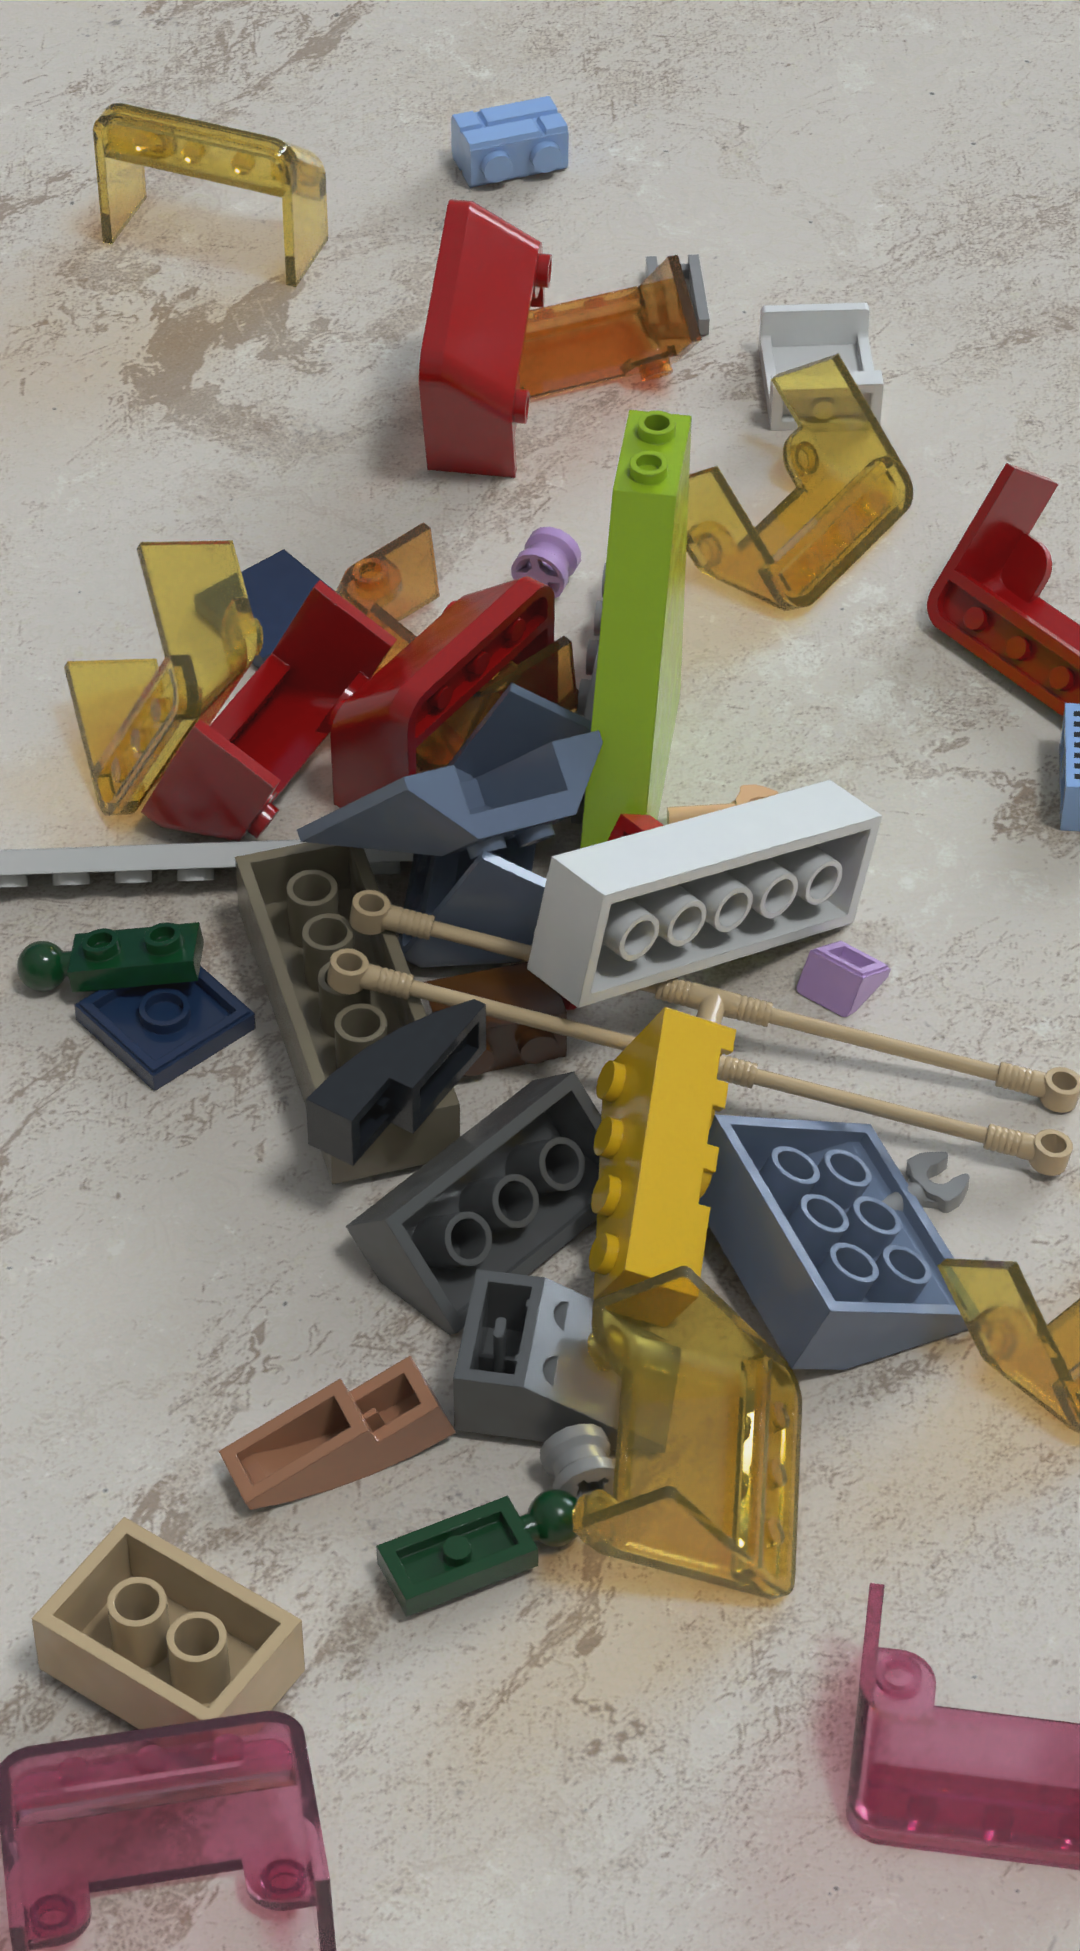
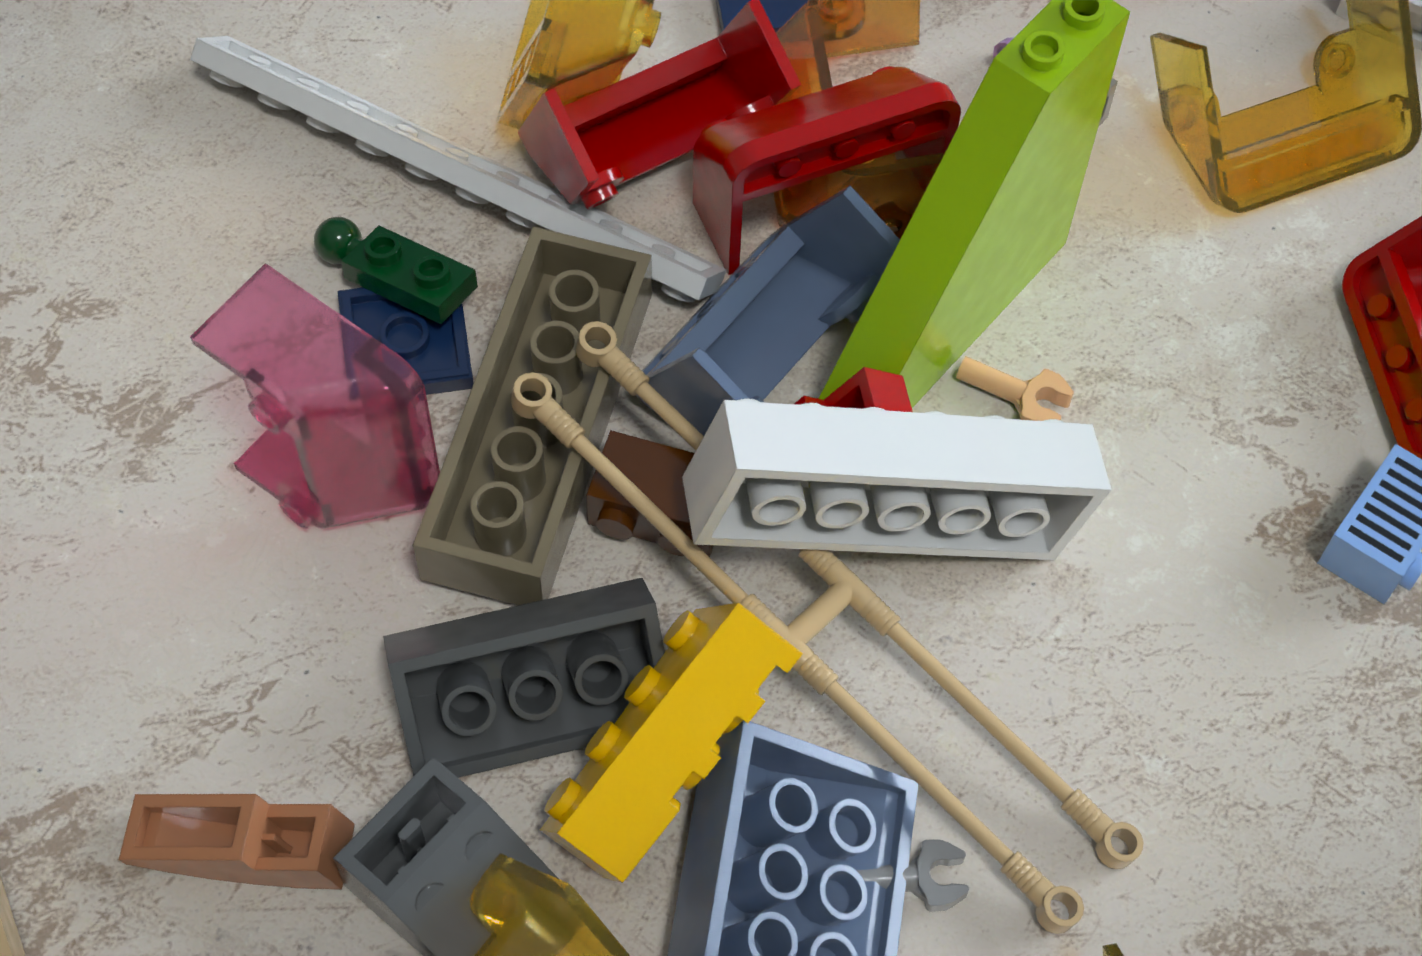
camera: 30 degrees right, 15 degrees up
(203, 1004) = (338, 406): none -> clear pink windscreen
(395, 1080) = (488, 530): black slope -> none
(445, 816) = (738, 293): sand blue slope -> none
(841, 977) = (1003, 612): lavender slope -> none

